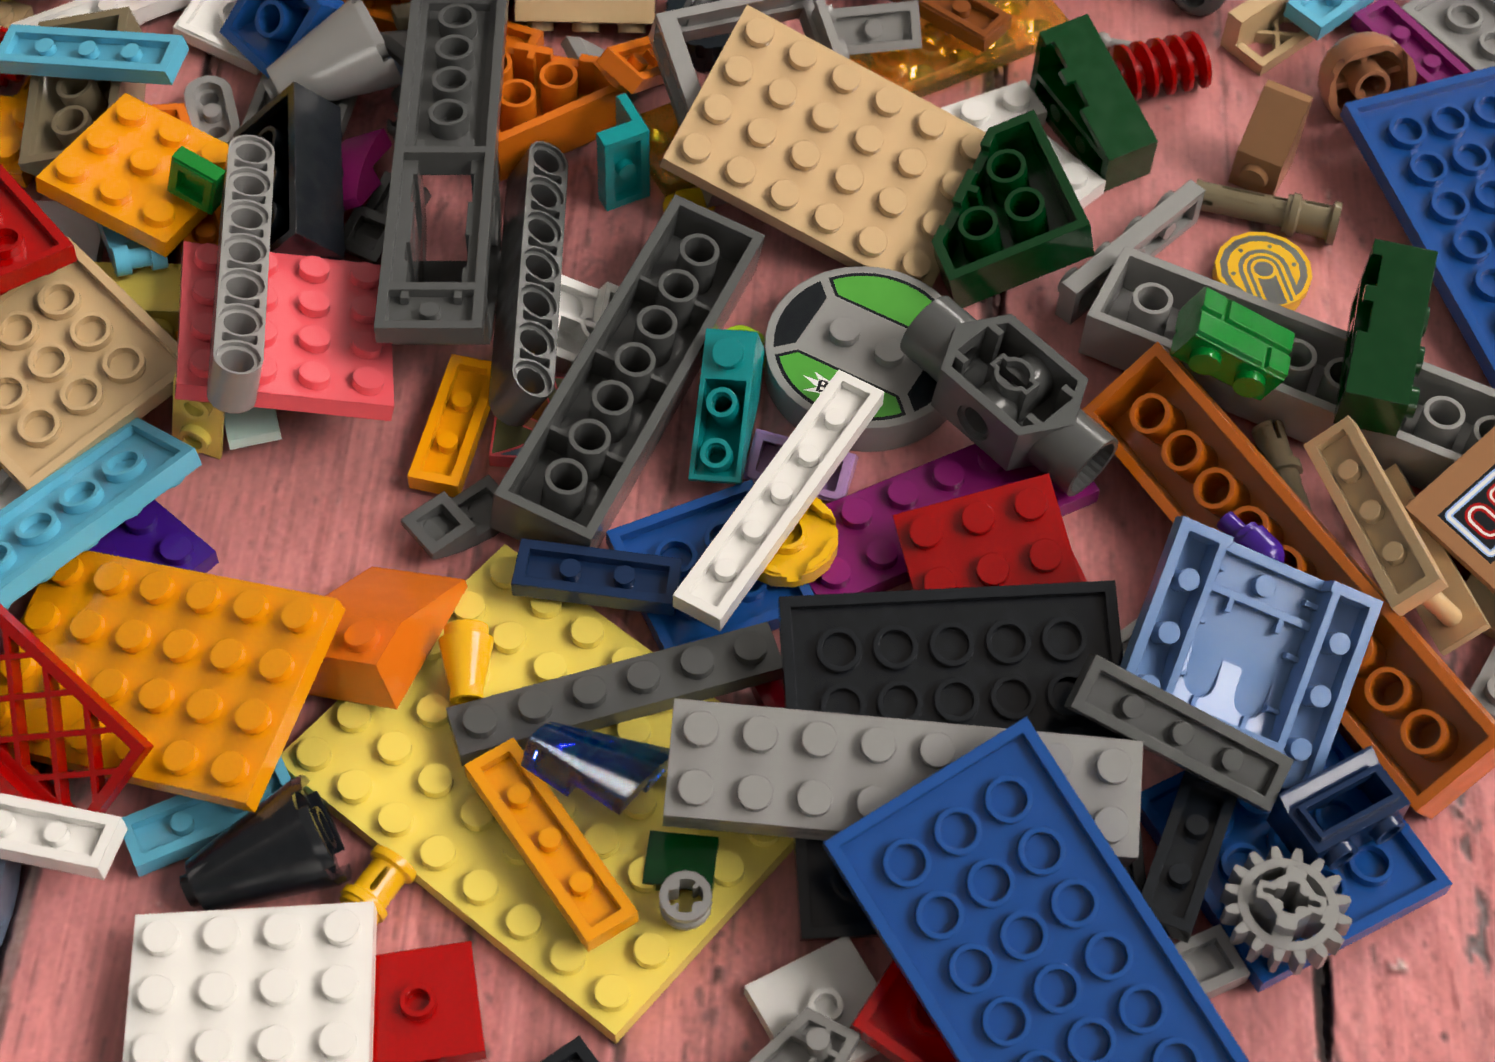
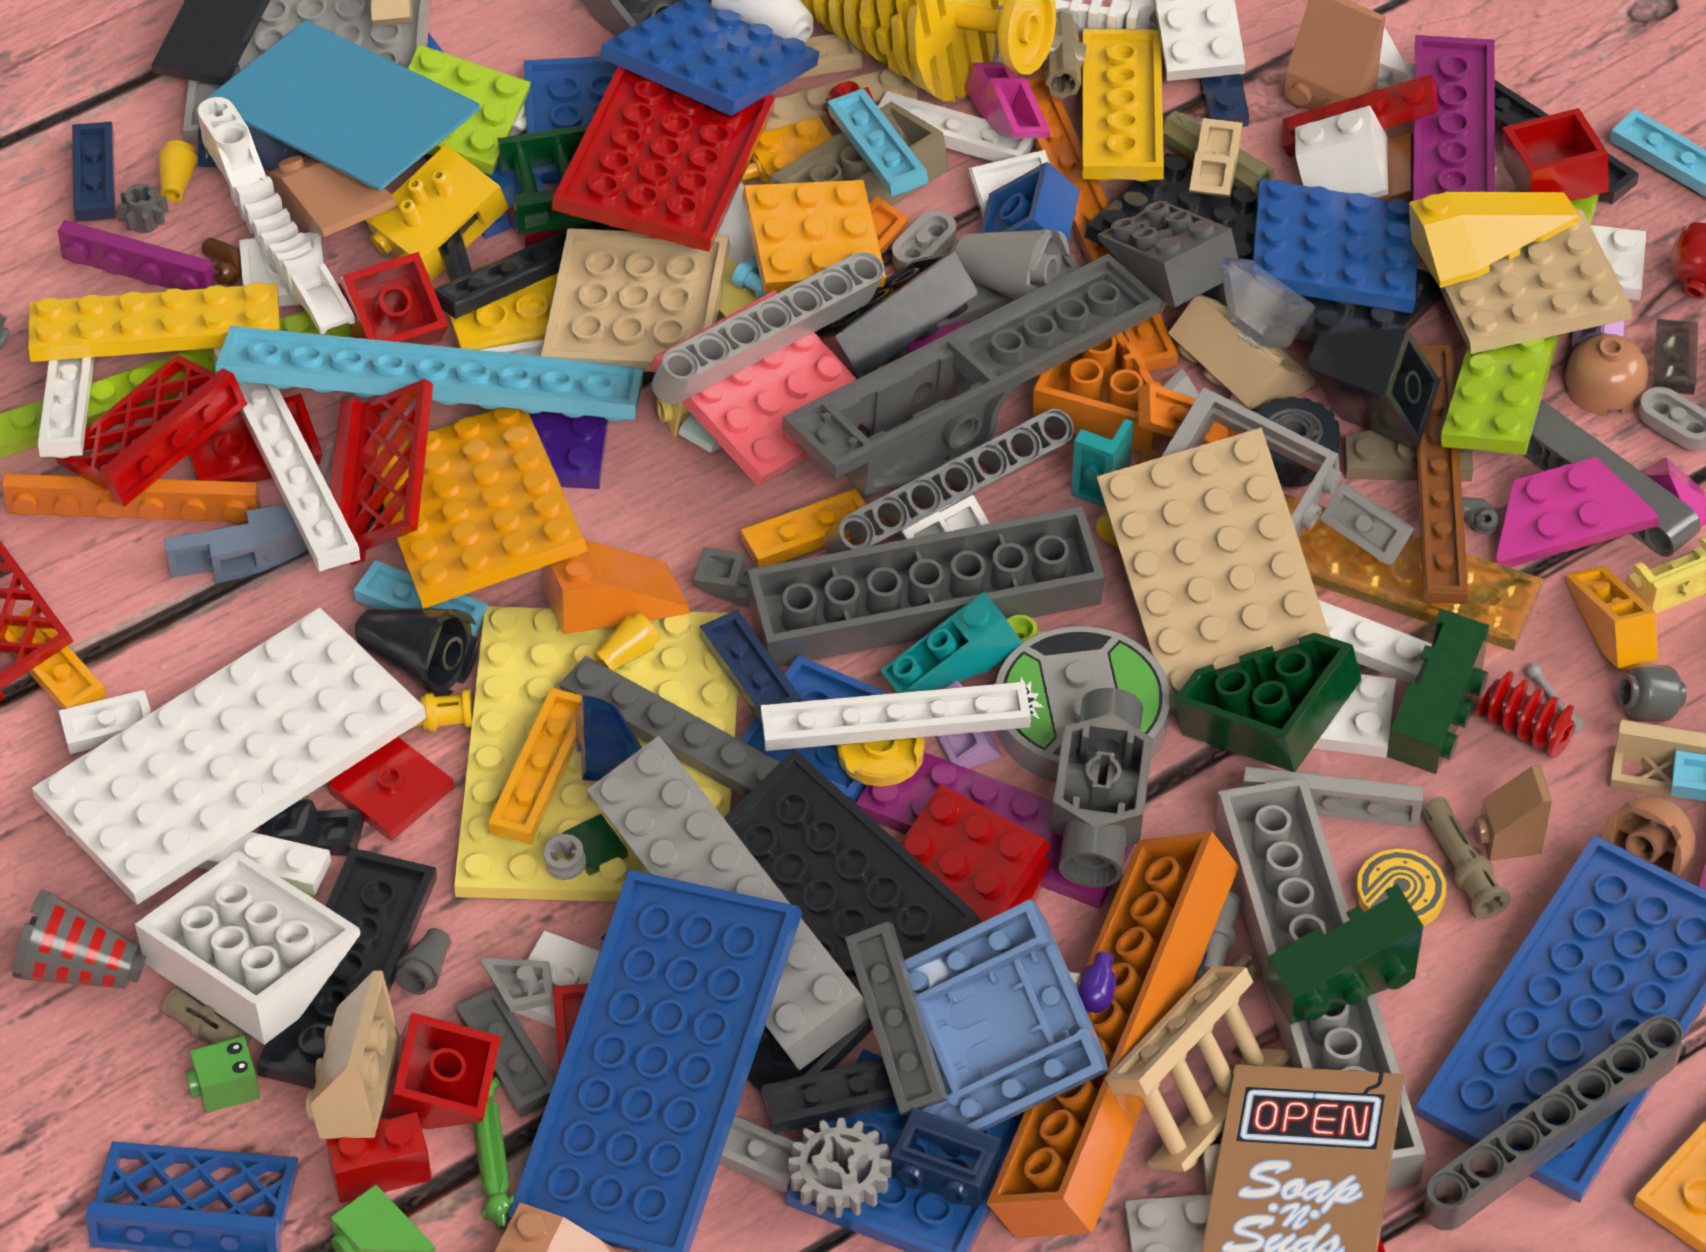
camera: 55 degrees right, 5 degrees down
(196, 180) = (815, 253): green tile -> none
(1232, 344) = (1249, 873): green brick -> none

